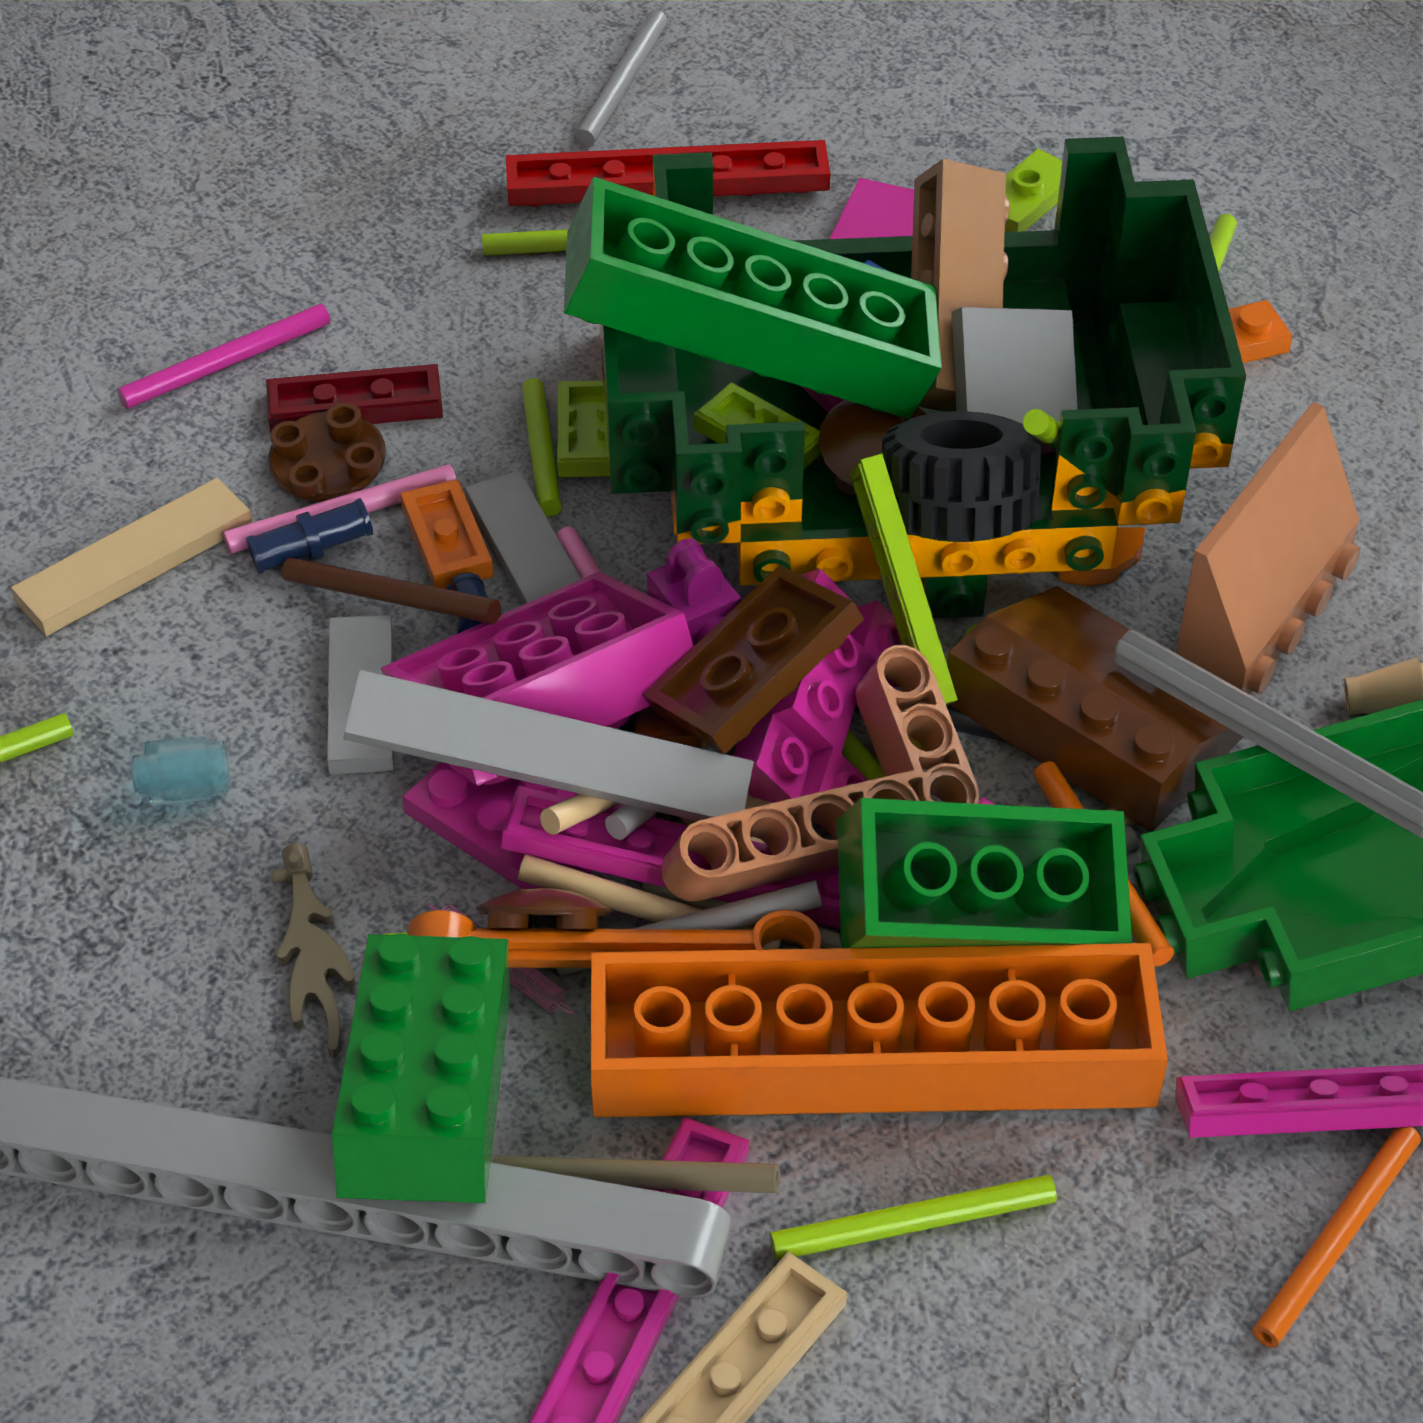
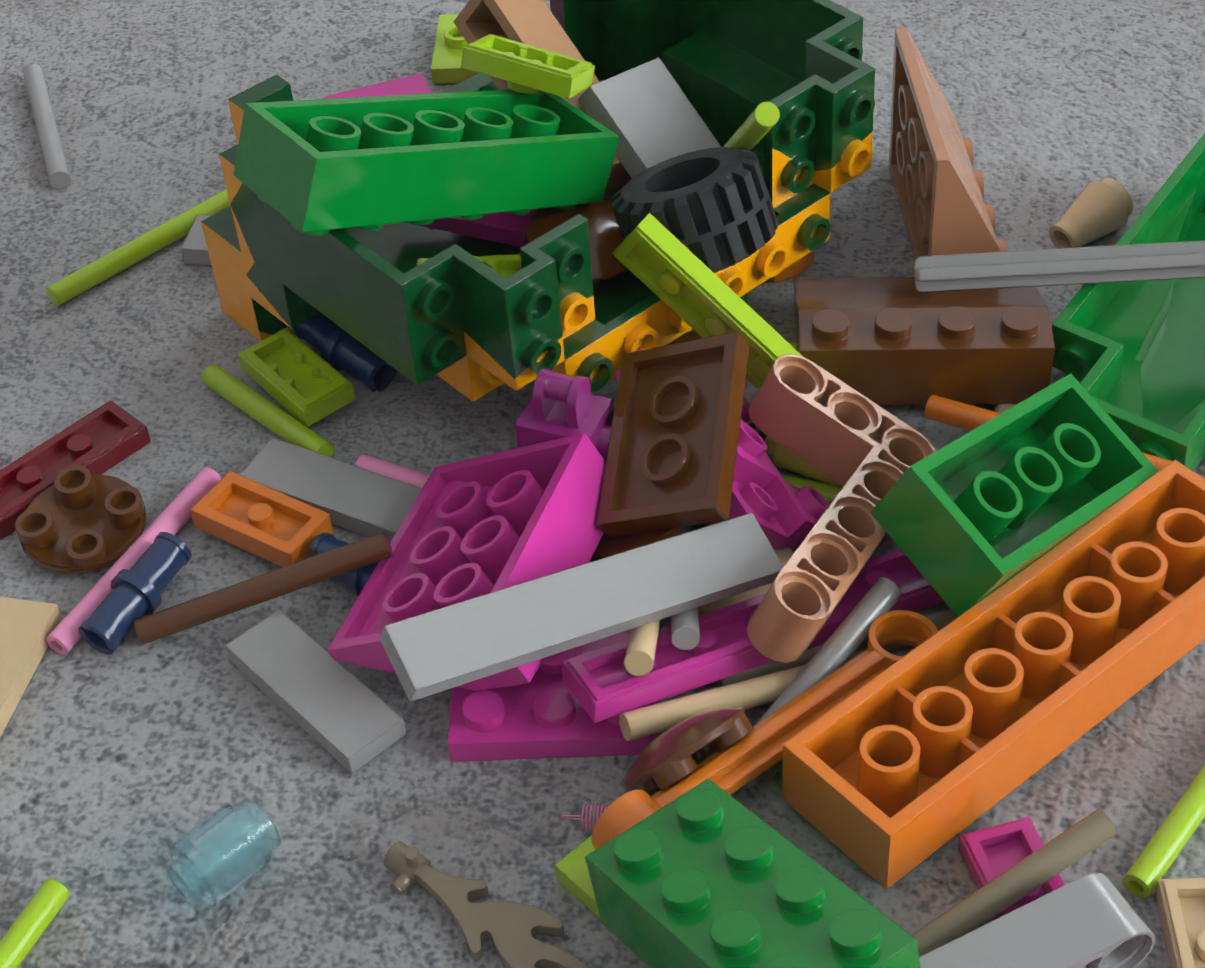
camera: 35 degrees left, 5 degrees down
(737, 170) = (126, 185): red plate -> none
(917, 260) = (528, 67): none -> lime plate

